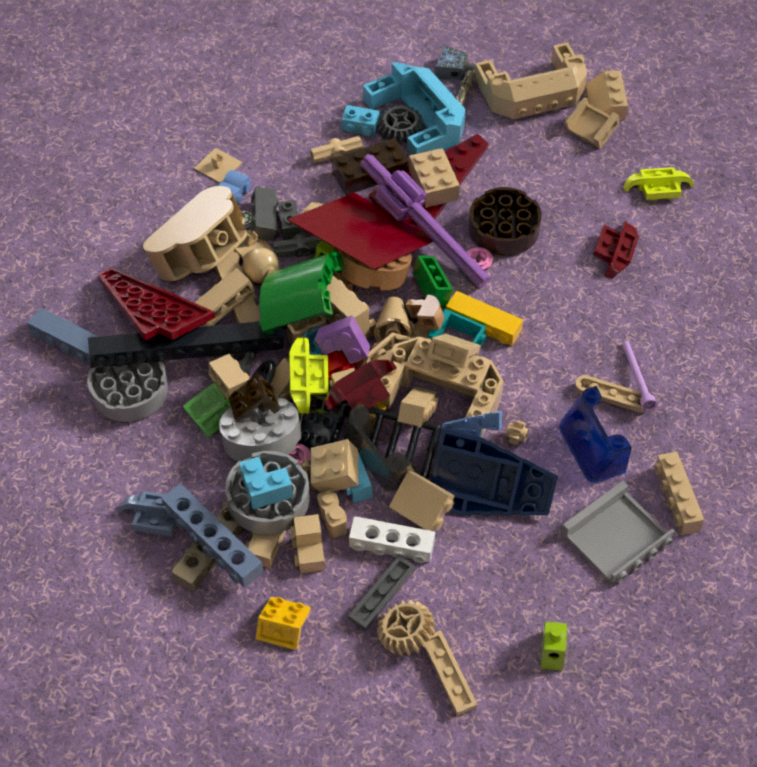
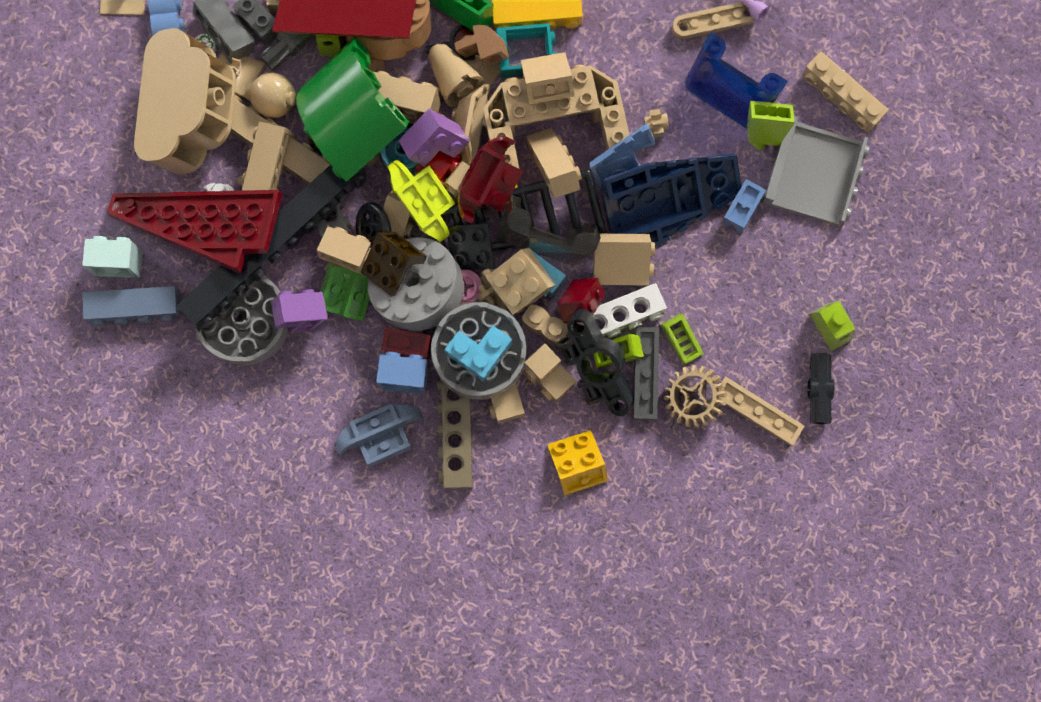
camera: 35 degrees left, 25 degrees up
(77, 298) = (112, 257): none -> light aqua brick
(167, 396) = (299, 311): none -> medium lavender brick
(181, 498) = (400, 410): sand blue brick -> none
(204, 480) = (403, 373): none -> medium blue brick
(219, 460) = (406, 342): none -> dark red panel
(347, 581) = (595, 385): none -> black piece
(369, 508) = (581, 294): none -> dark red brick
(375, 563) = (631, 347): none -> lime slope
(431, 570) = (684, 326): none -> lime slope
(510, 686) = (821, 388): none -> black piece
(543, 523) = (744, 206): none -> medium blue hinge
(598, 473) = (768, 123): none -> lime torso

